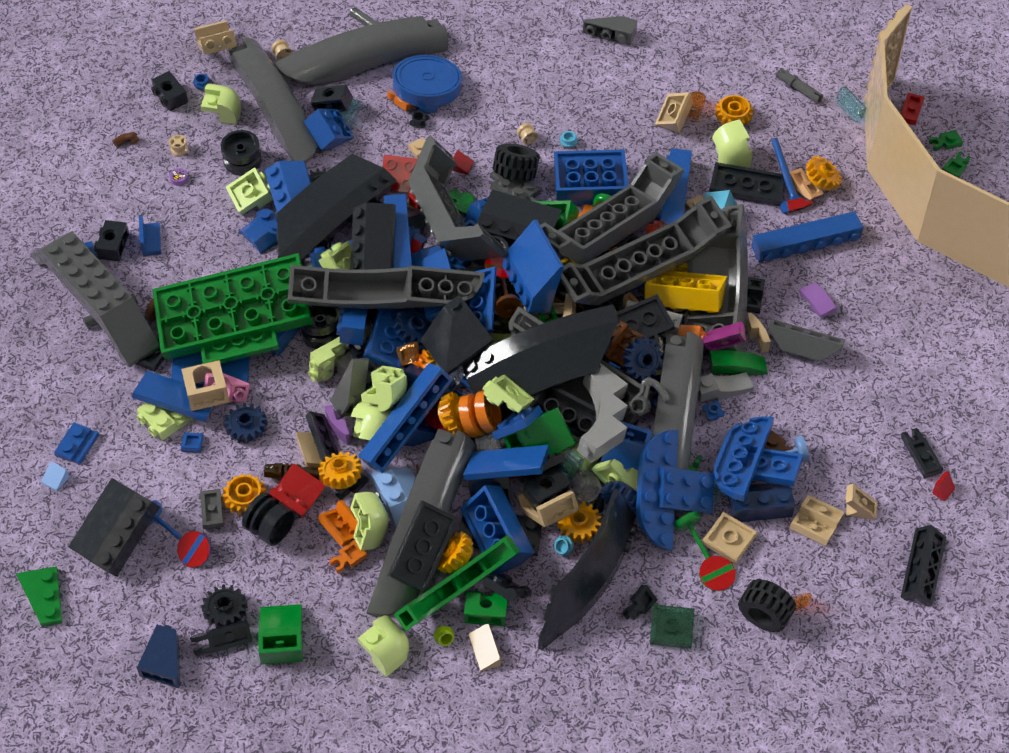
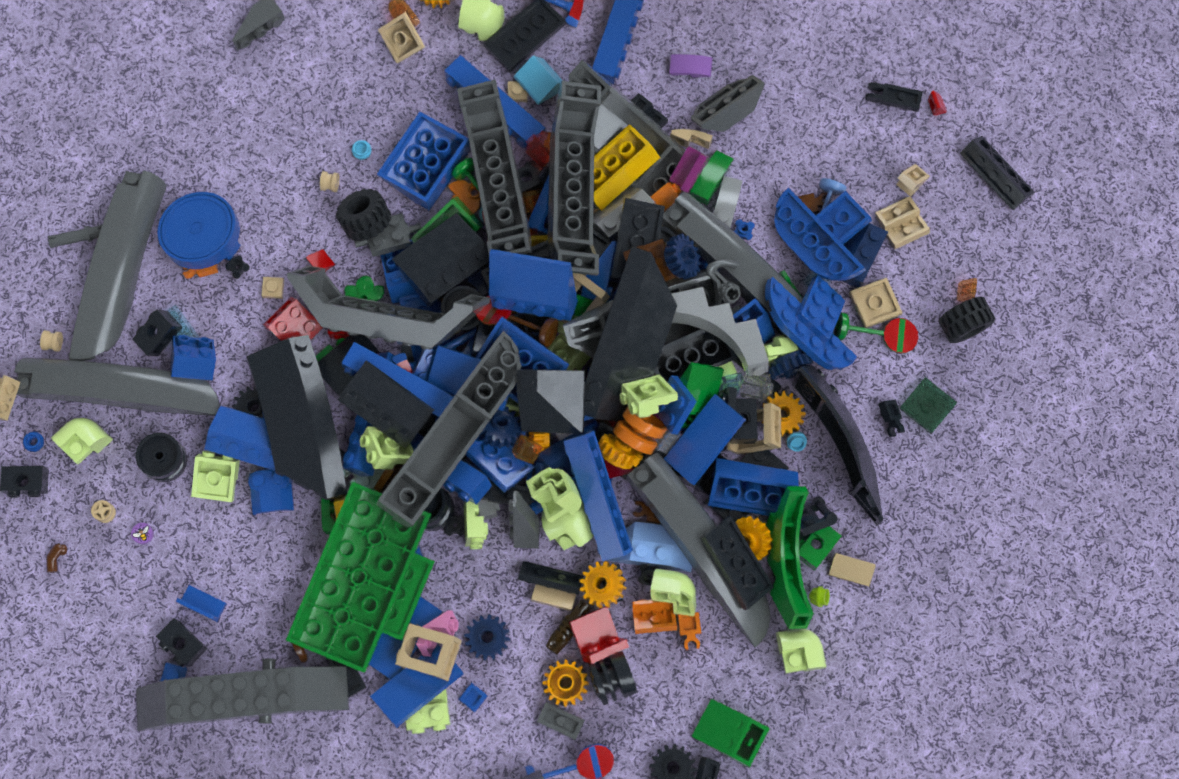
camera: 55 degrees left, 20 degrees up
(338, 425) = (553, 555): medium lavender slope -> none

